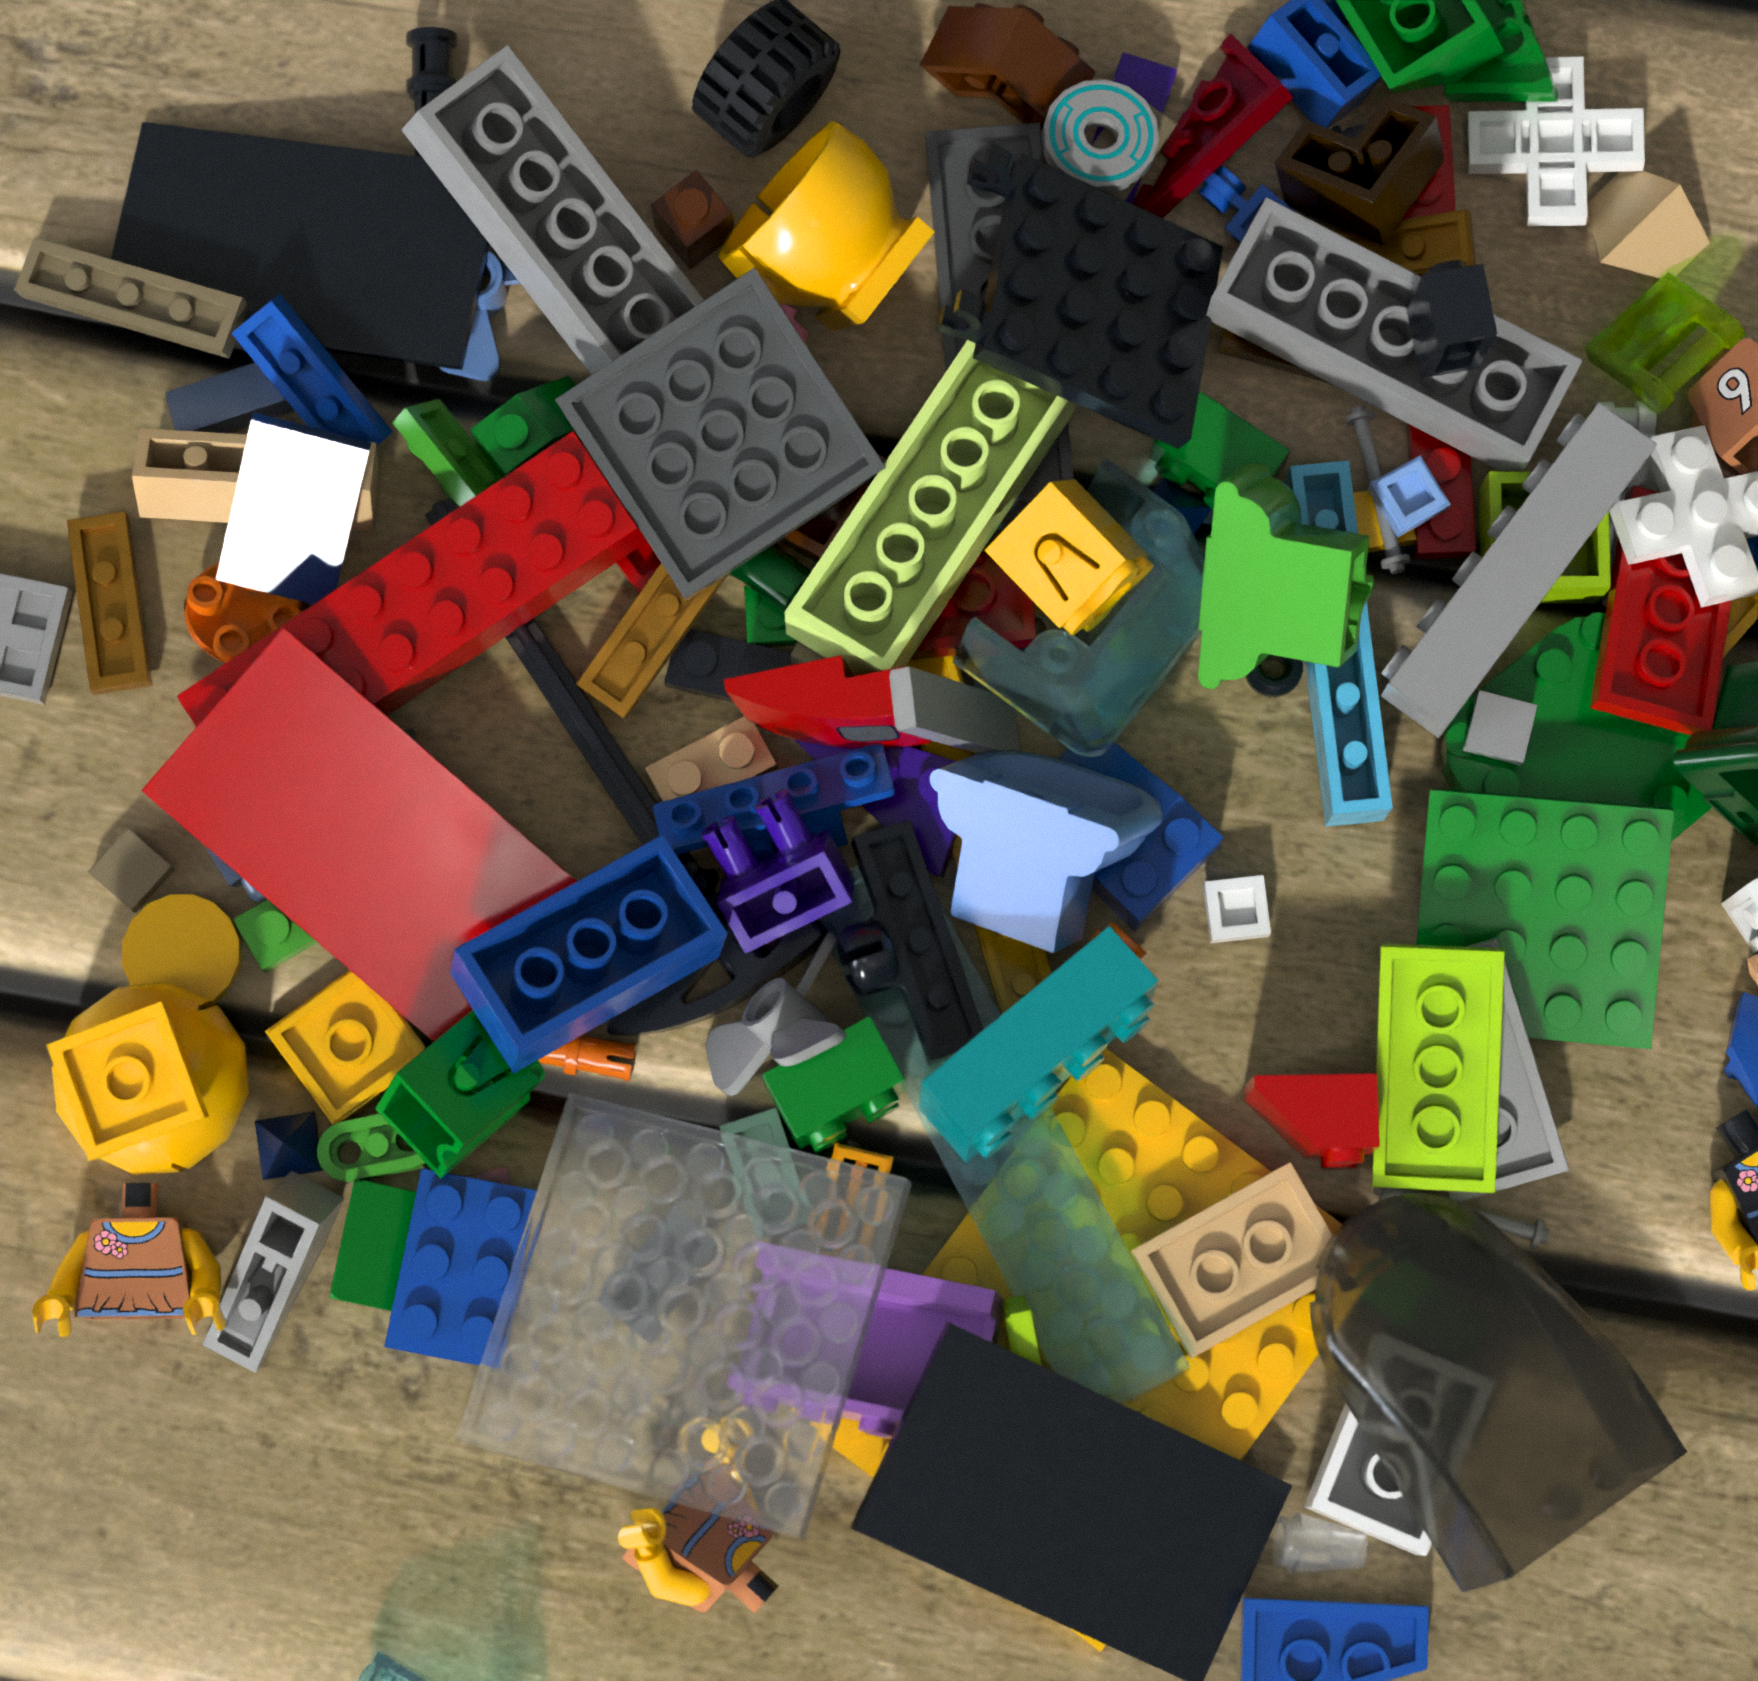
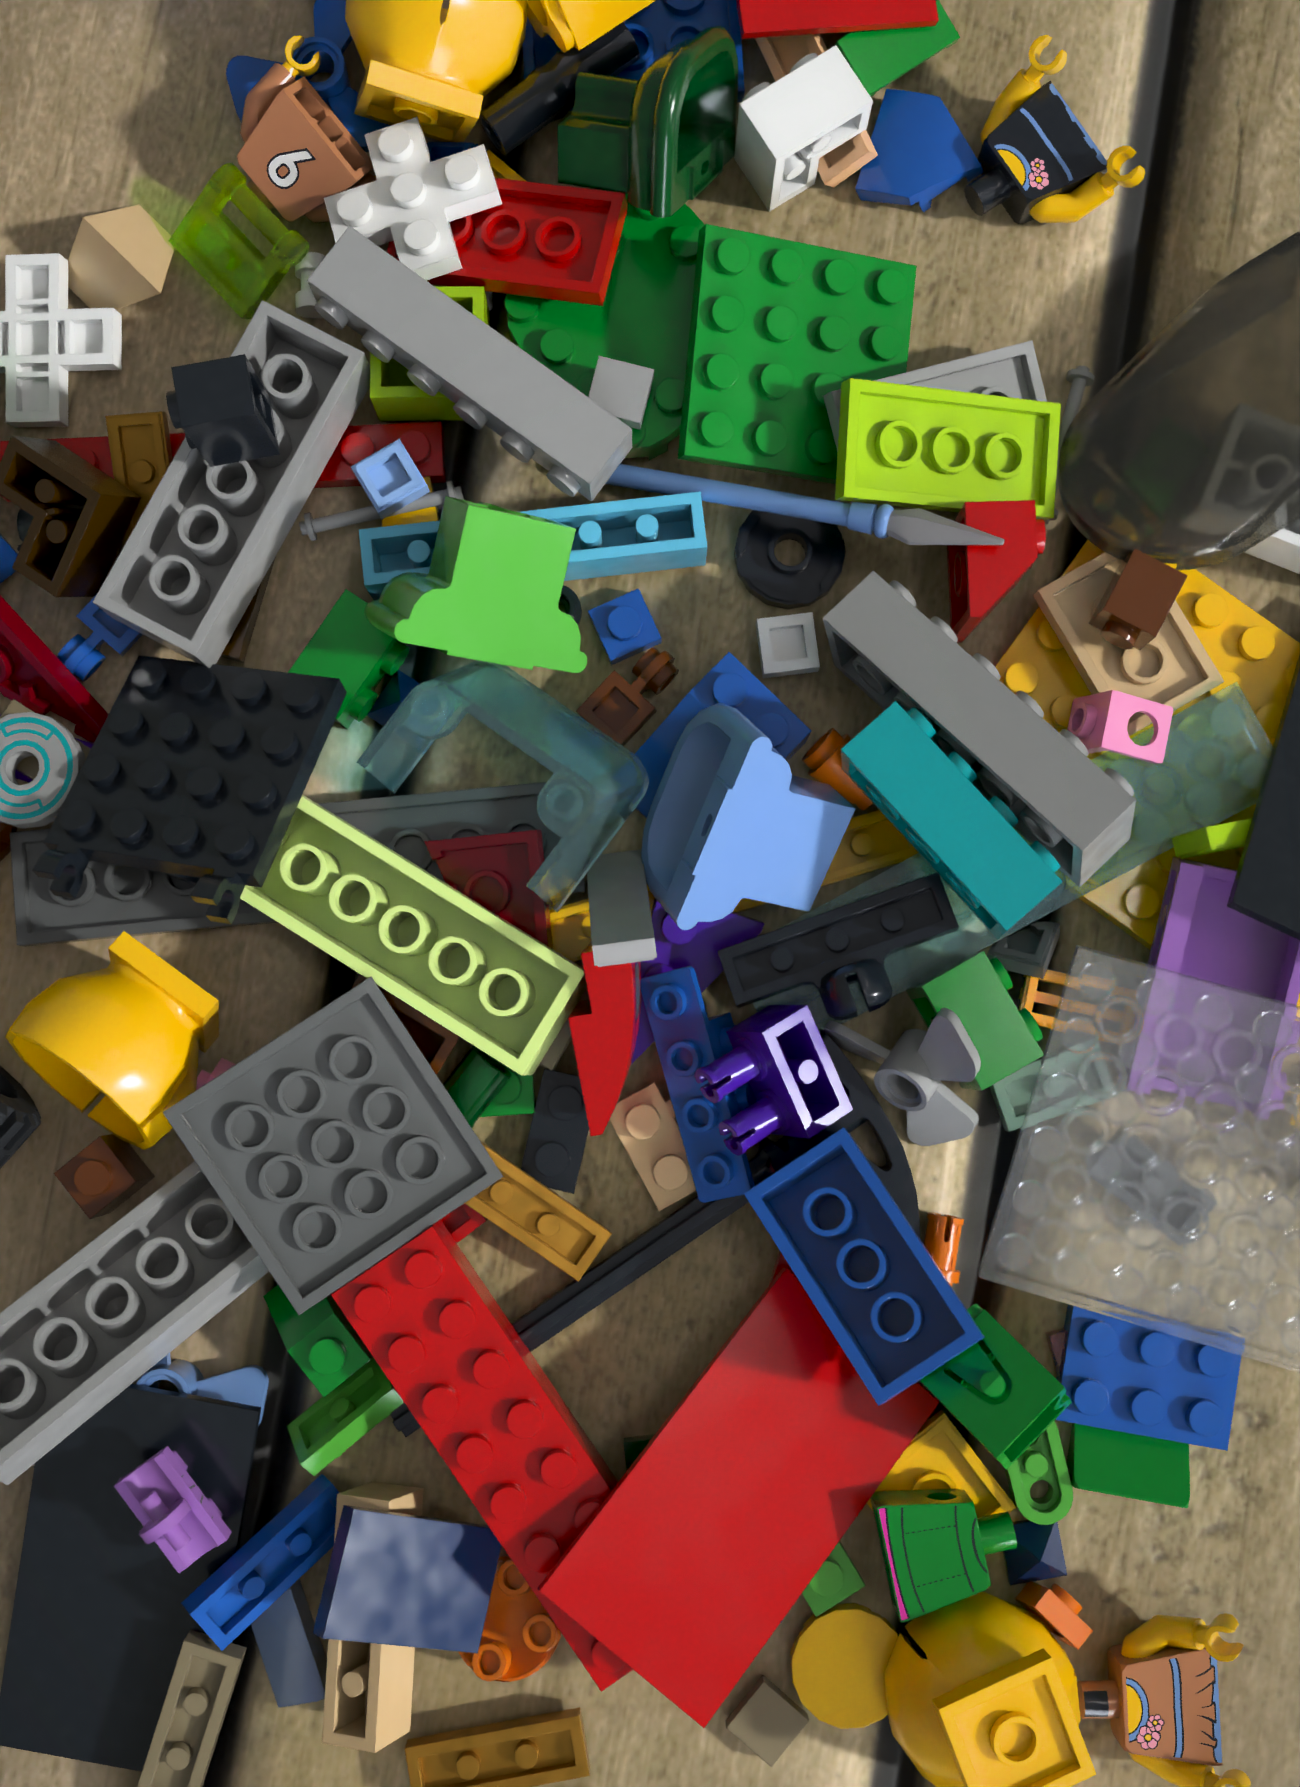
camera: 90 degrees left, 5 degrees up
(229, 1161) = (1057, 1611): none -> orange plate
(273, 1268) = (1155, 1562): light grey slope -> none
(302, 1033) = (936, 1547): none -> green torso
(370, 284) = (172, 1509): none -> medium lavender hips
(909, 1154) = (1028, 949): none -> dark grey tile
(1070, 556) = (463, 792): yellow piece -> none
(1139, 1086) = (1002, 735): none -> light grey brick
(1144, 1218) = (1102, 724): none -> bright pink bracket
(1169, 731) = (620, 707): none -> reddish brown plate
(1257, 741) = (624, 626): none -> blue plate
(1273, 1255) = (1137, 601): none -> reddish brown brick
(1348, 882) = (783, 584): none -> black tile
(1352, 1015) = (905, 525): none -> medium blue piece

